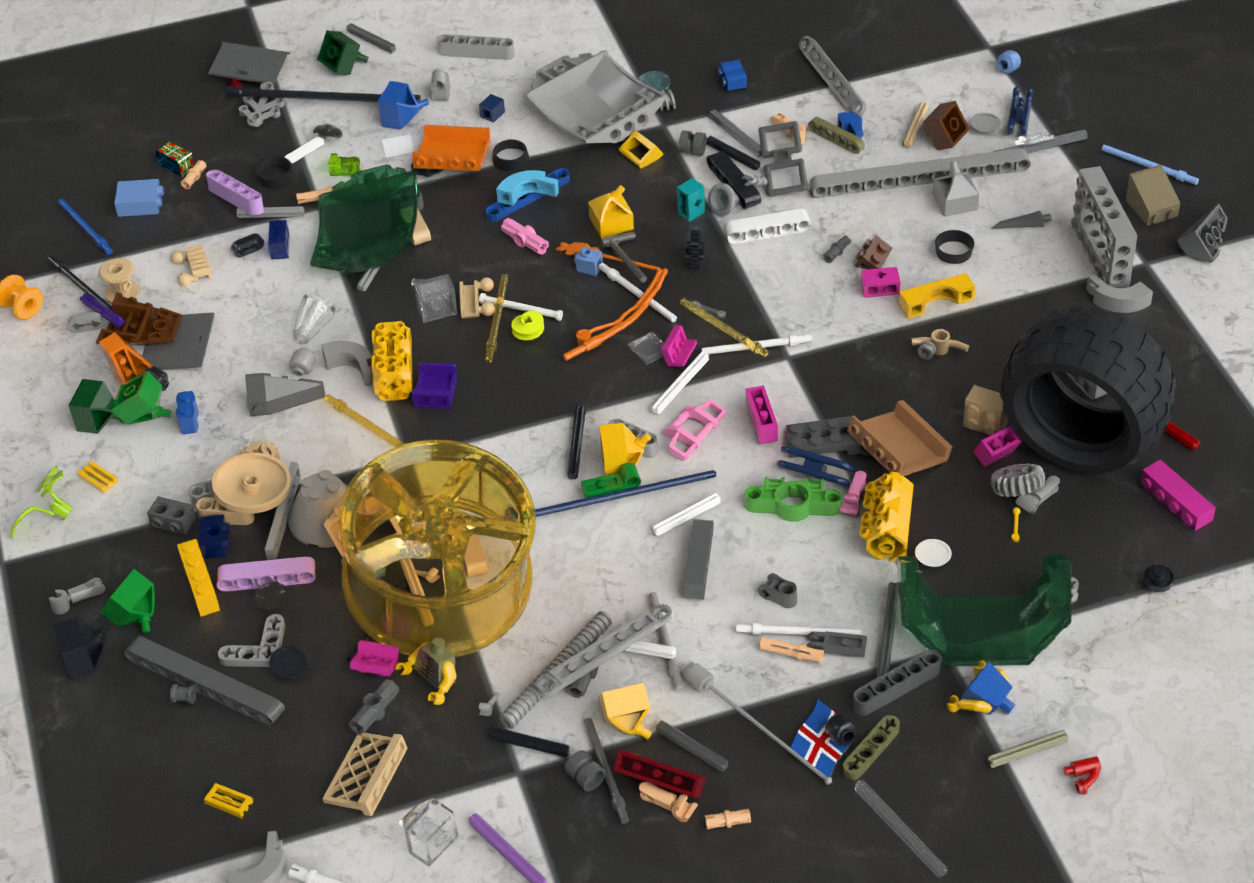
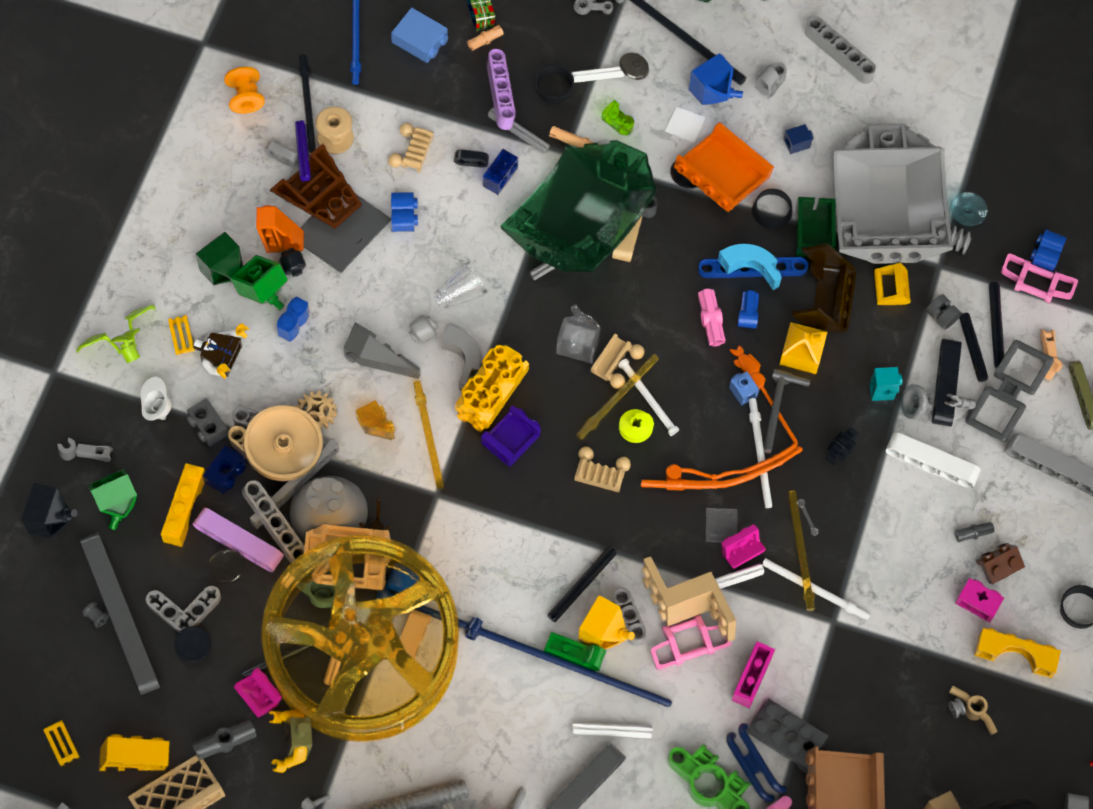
camera: 30 degrees right, 20 degrees up
(111, 523) = (155, 399): none -> white piece
(142, 463) = (221, 350): none -> torso
(221, 303) = (403, 211): none -> blue brick
(289, 537) = (273, 512): none -> light grey beam
(300, 762) = (134, 753): none -> yellow wedge
(315, 437) = (374, 422): none -> clear yellow slope
(525, 372) = (600, 475): none -> tan gear
(550, 220) = (748, 314): none -> blue piece
(556, 147) = (814, 226): none -> dark green piece
(594, 168) = (833, 291): none -> dark brown windscreen
(670, 393) = (689, 599): none -> tan bracket
(730, 101) = (1027, 266): none -> bright pink bar

